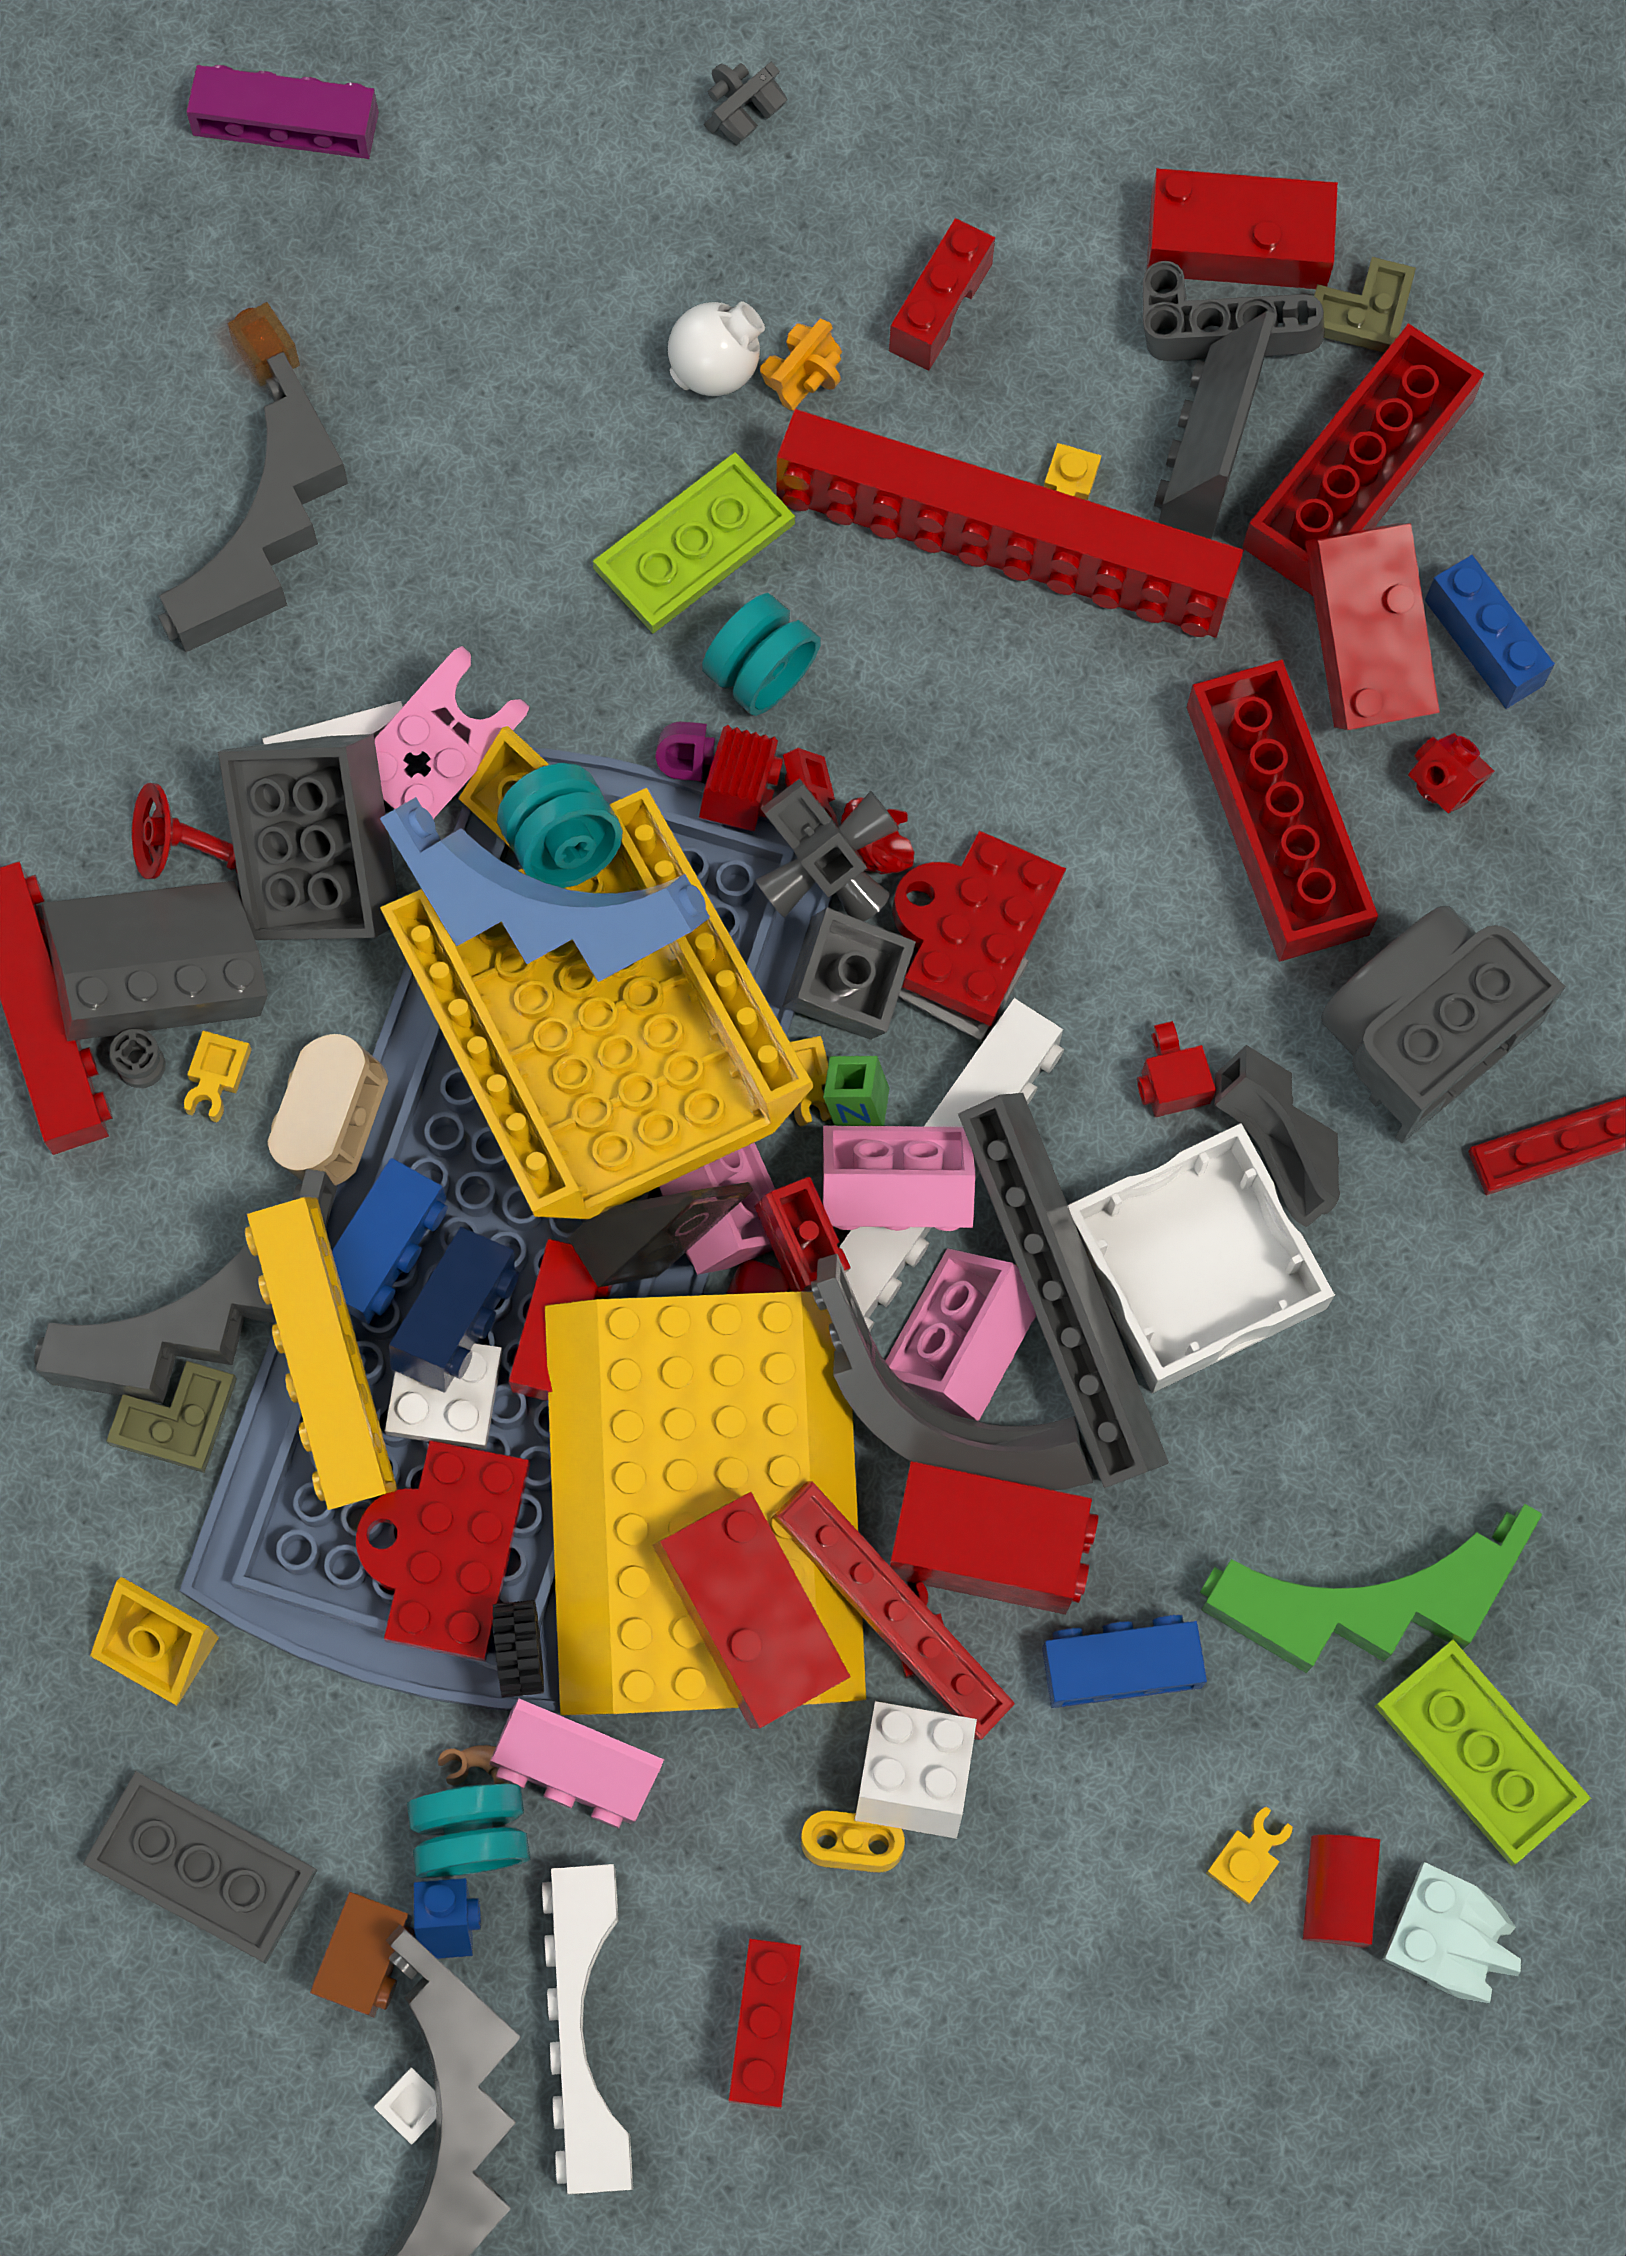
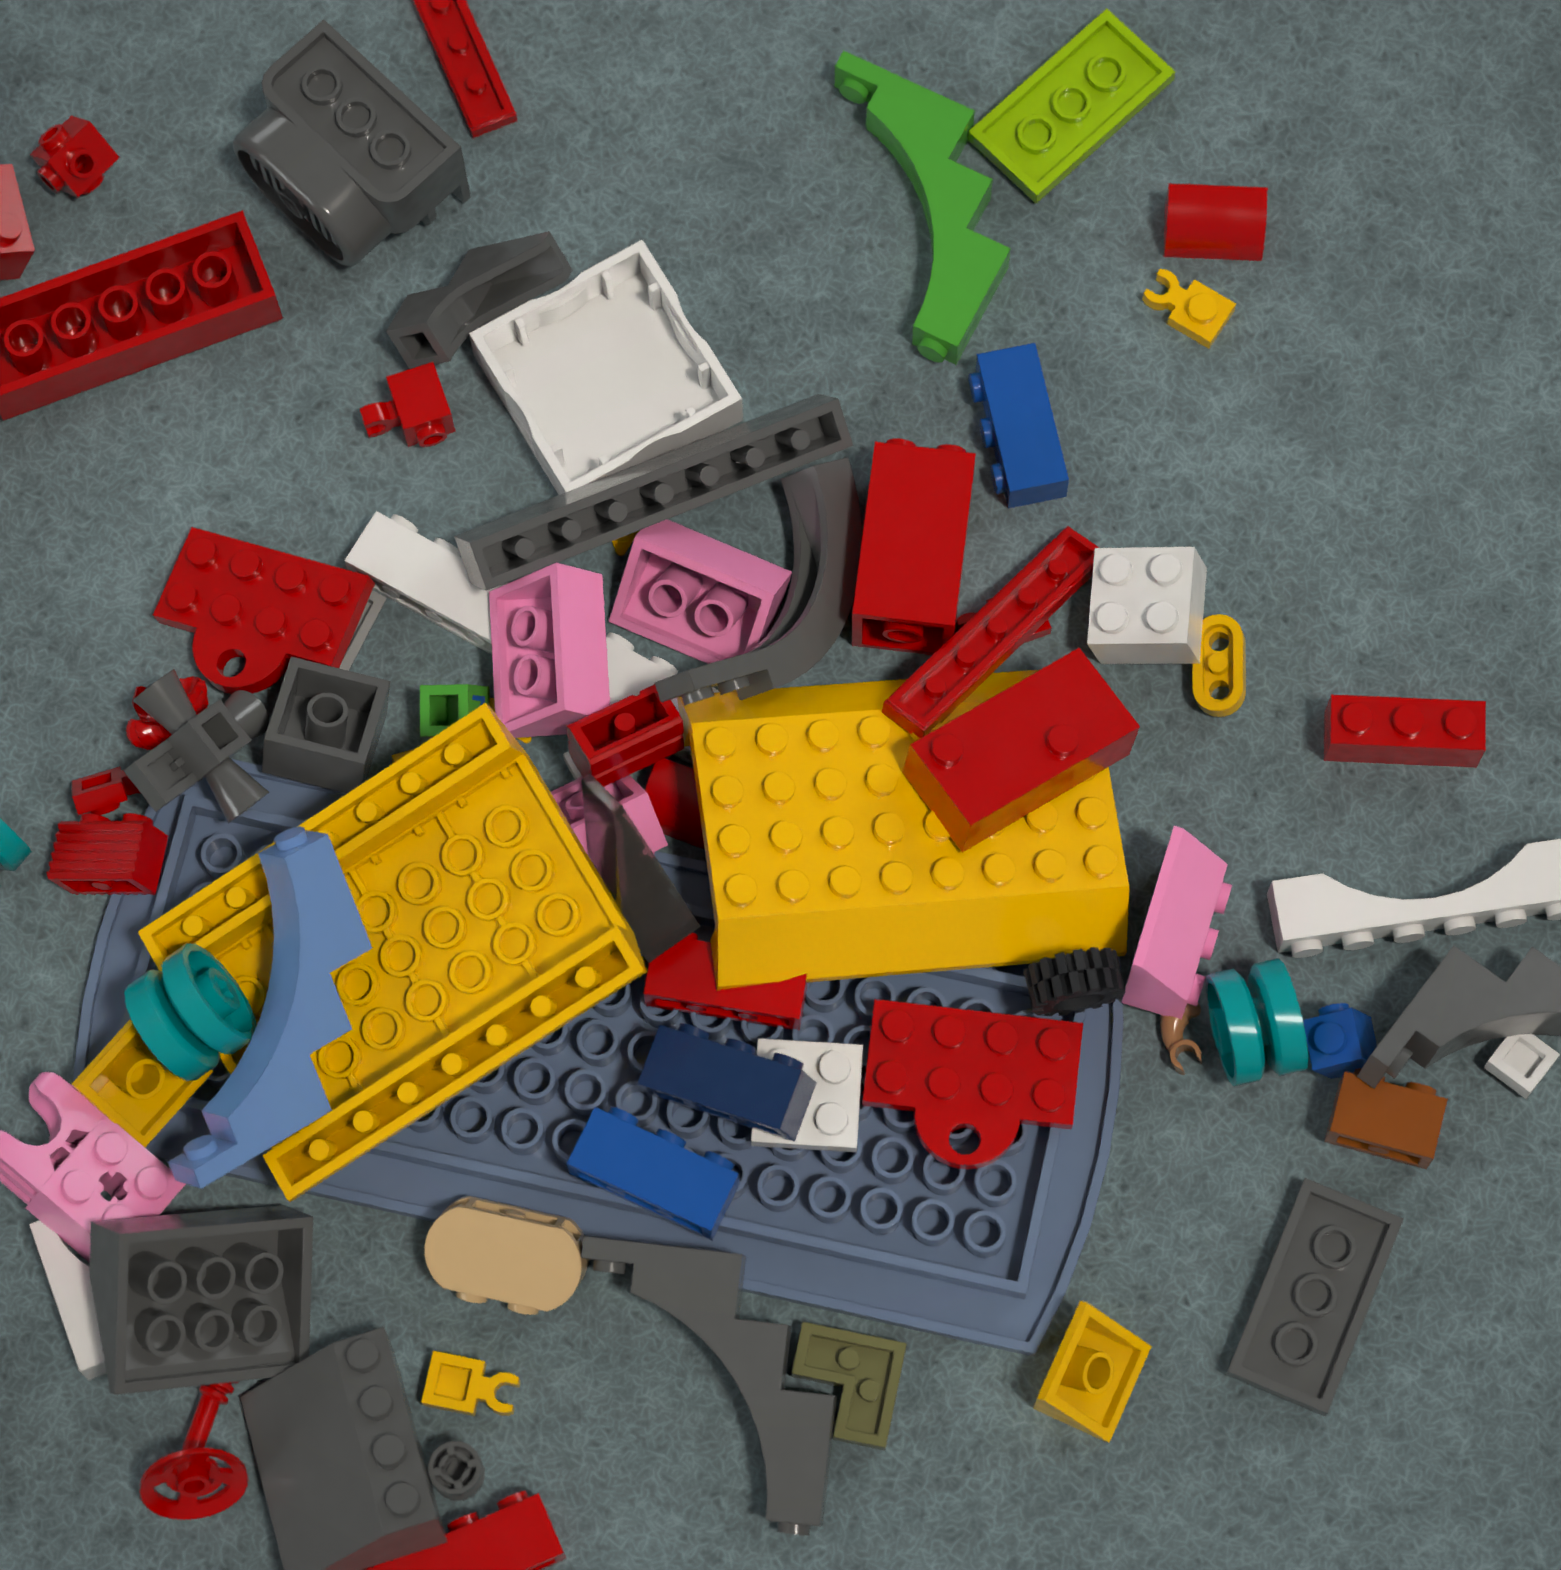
camera: 90 degrees left, 0 degrees up
(320, 1352) = (786, 1208): yellow brick -> none
(684, 750) = (73, 919): magenta plate -> none
(1451, 1935) = (1245, 128): light aqua plate -> none

